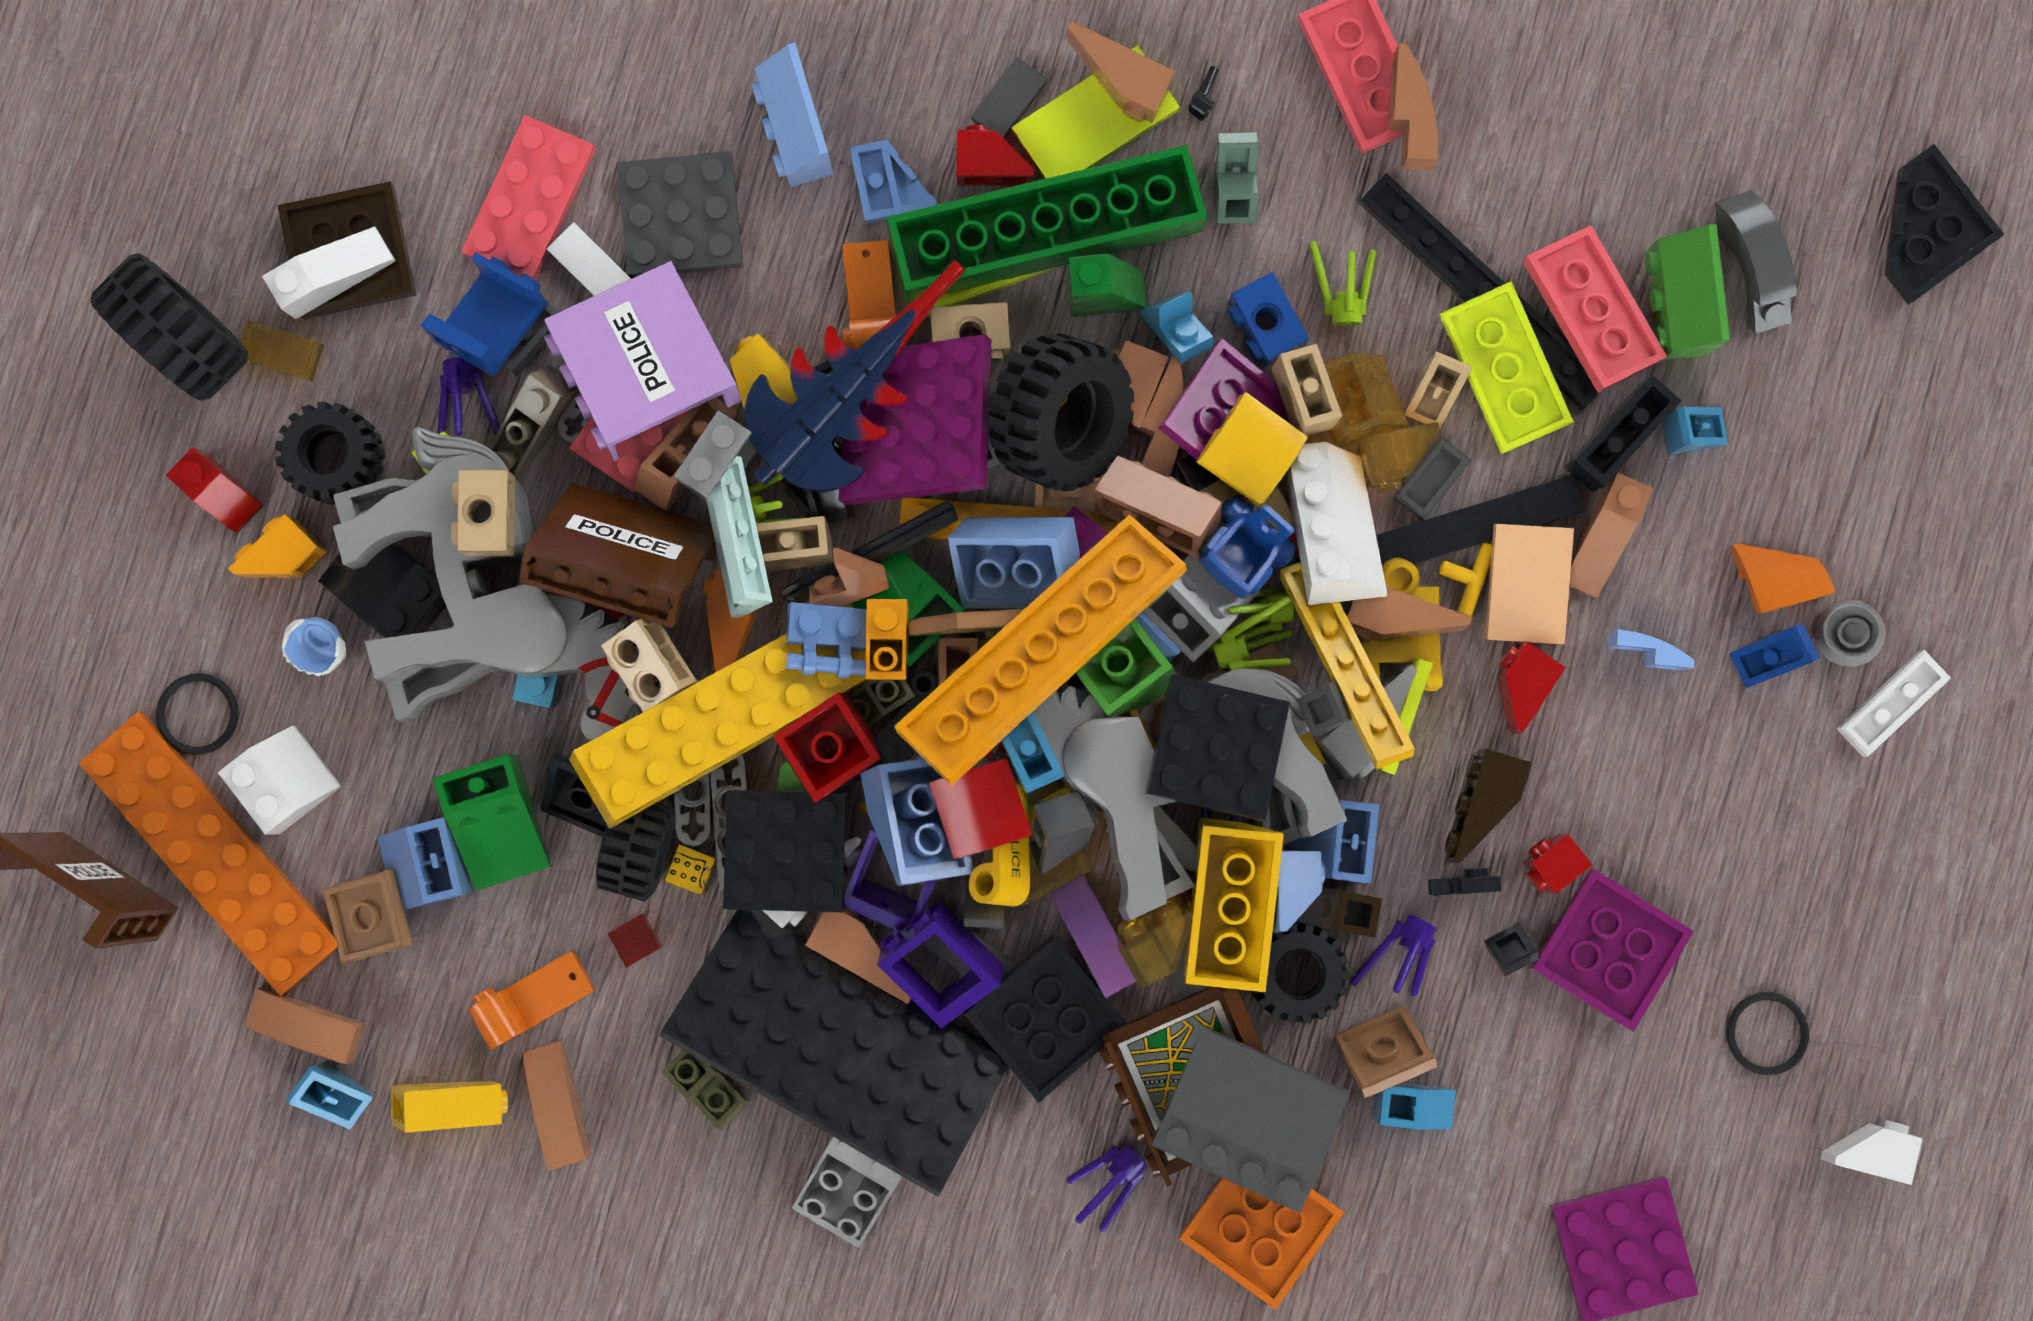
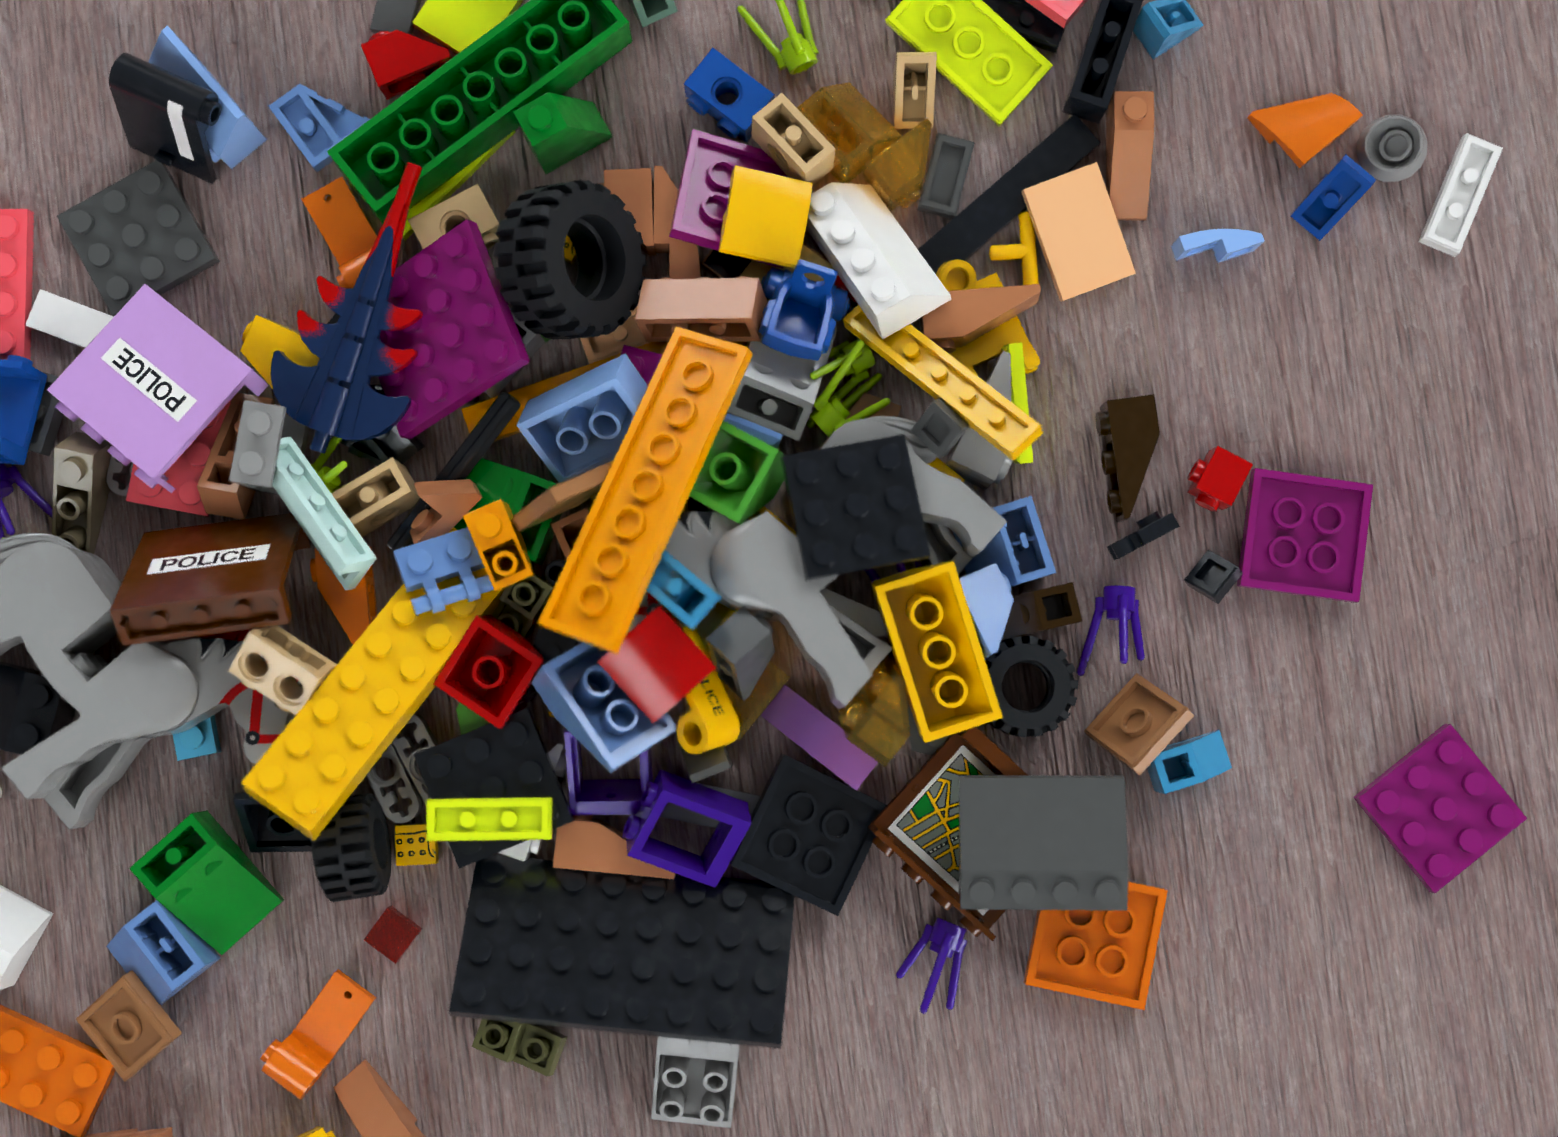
camera: 20 degrees left, 0 degrees up
(496, 534) = (81, 606): tan brick -> none
(757, 120) = (165, 115): none -> black door
(770, 877) = (489, 819): none -> neon yellow tile
(1177, 326) = (647, 137): dark azure slope -> none
(1525, 683) = (1116, 324): red slope -> none
(1804, 1030) = (1444, 549): black tyre -> none

